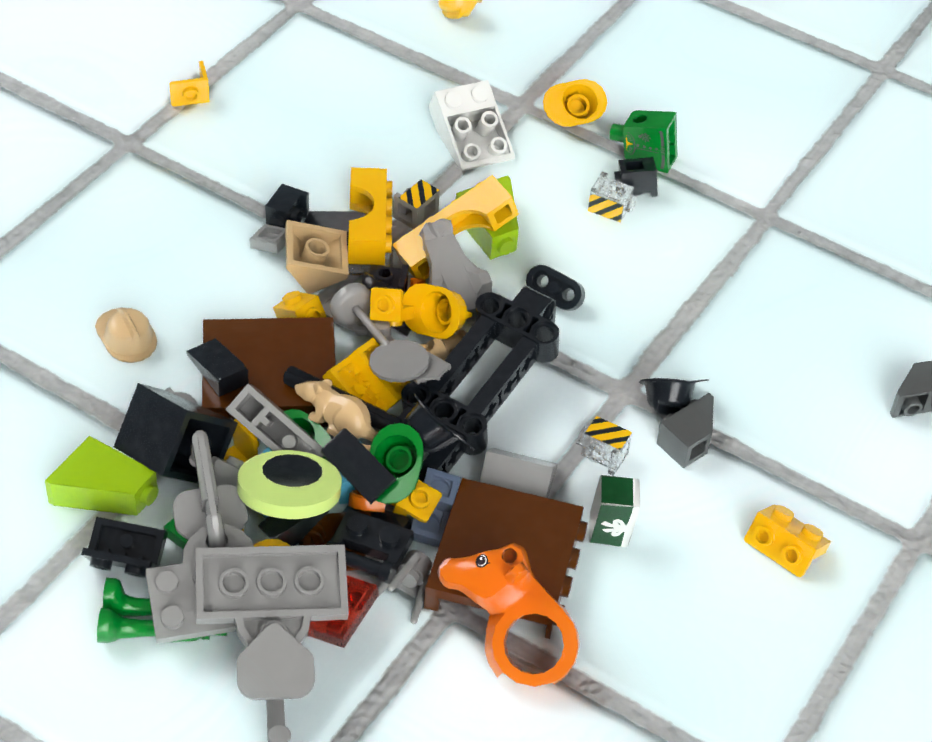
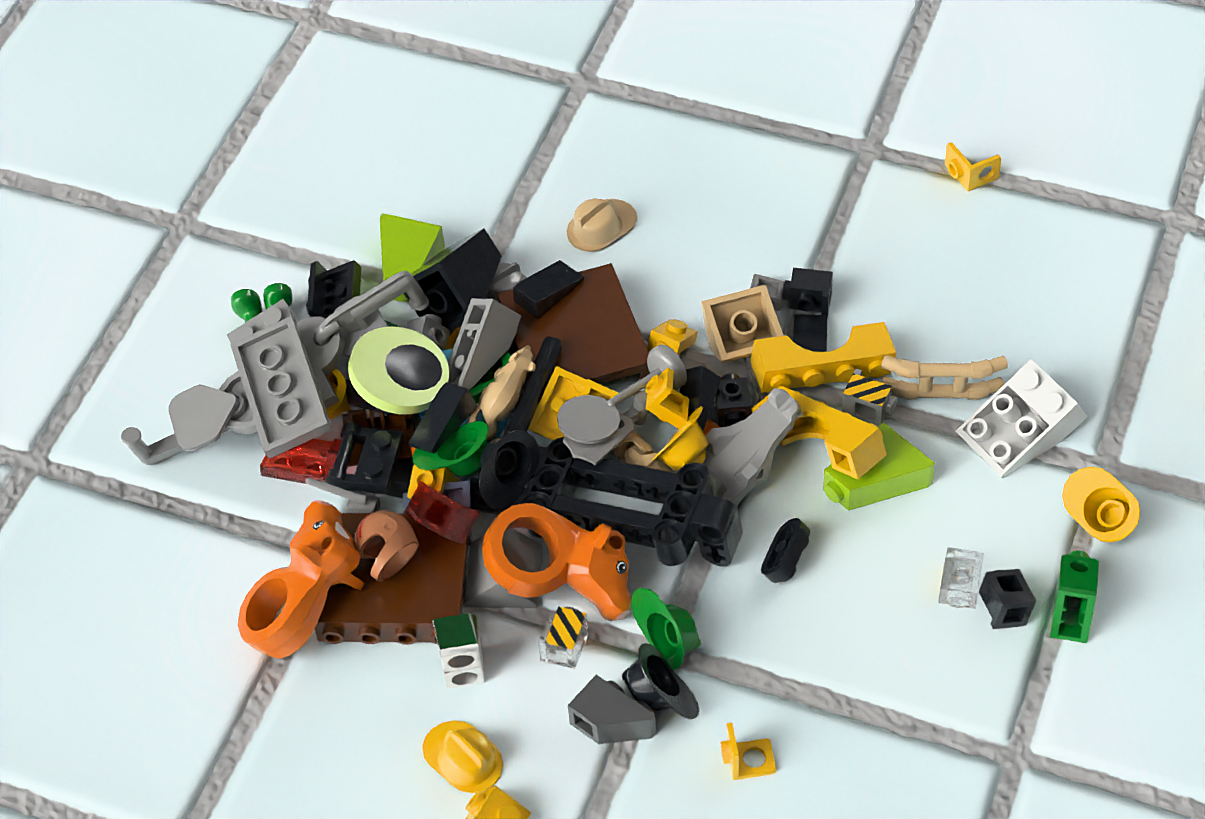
camera: 85 degrees right, 5 degrees up
(419, 155) = (959, 371): none -> tan piece
(470, 485) = (441, 513): none -> clear red slope
(488, 529) = (388, 540): none -> nougat helmet
(538, 417) = (585, 560): none -> orange animal
(619, 373) = (665, 626): none -> green piece
(702, 544) = (463, 756): none -> yellow piece
(744, 358) = (734, 752): none -> yellow bracket

